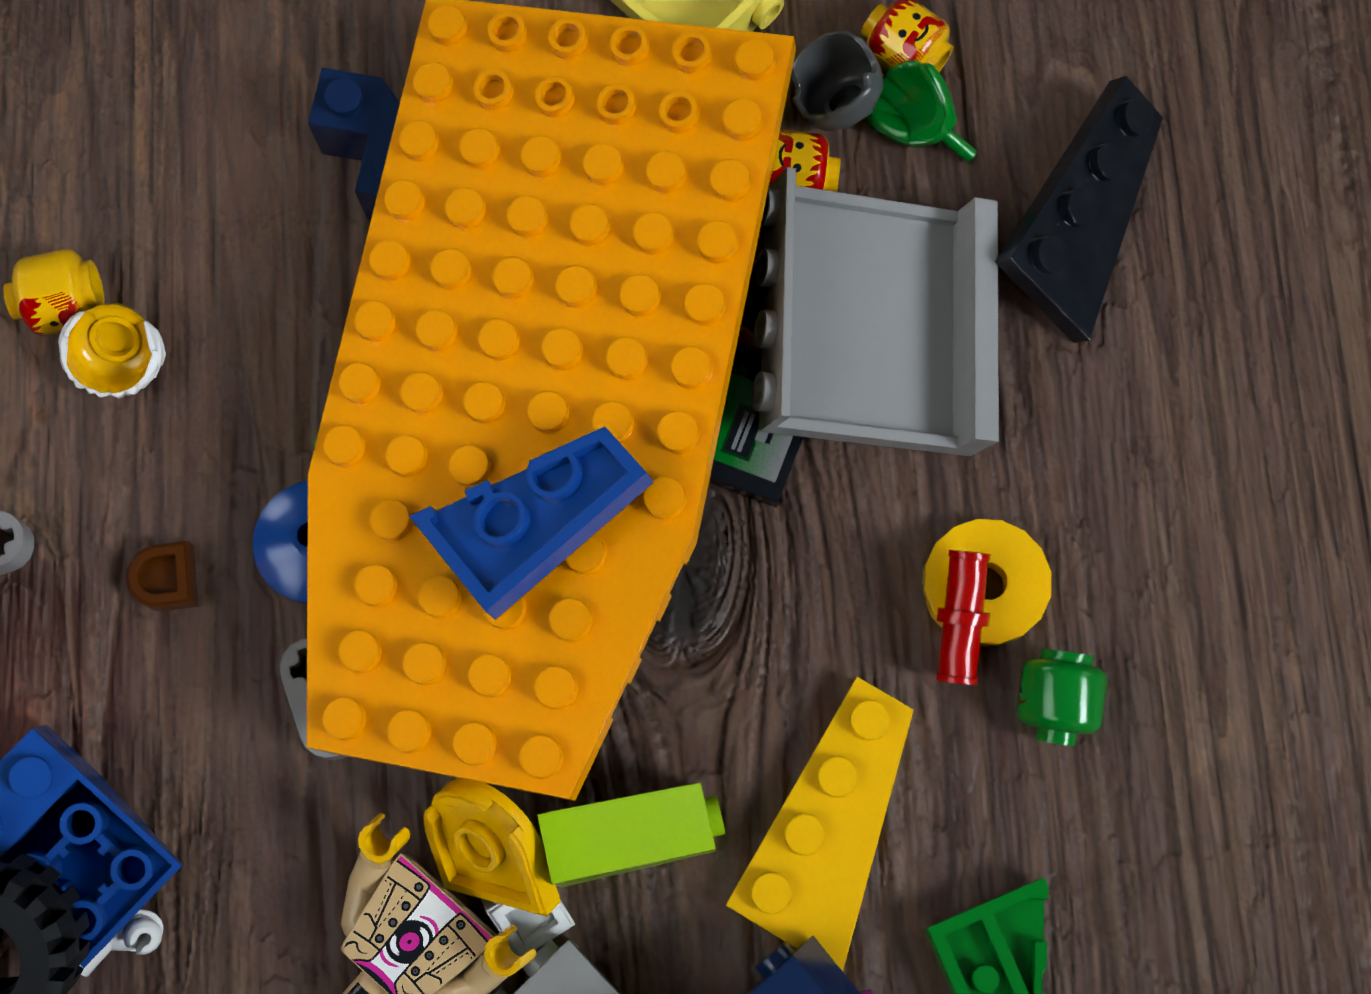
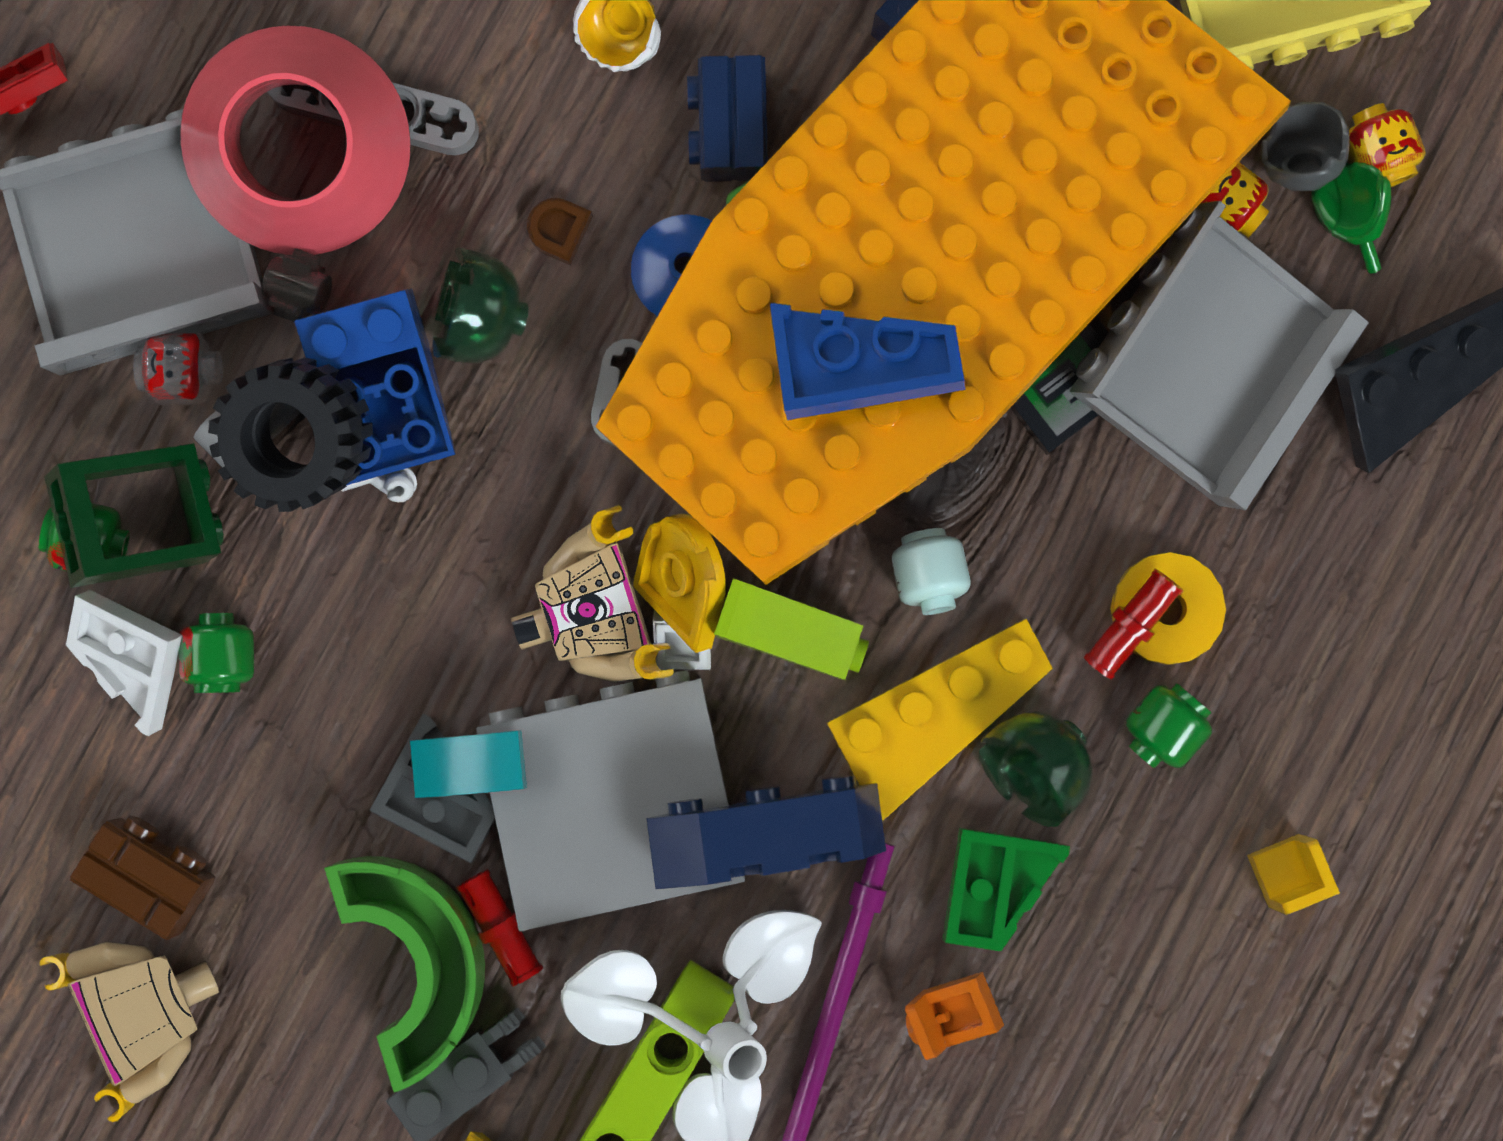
camera: 30 degrees right, 10 degrees up
(124, 703) = (478, 308): none -> clear green cylinder
(272, 368) = (731, 117): none -> dark blue brick
(734, 687) = (930, 570): none -> light aqua head
(961, 811) = (1041, 763): none -> clear green cylinder
(1276, 766) = (1293, 874): none -> yellow panel

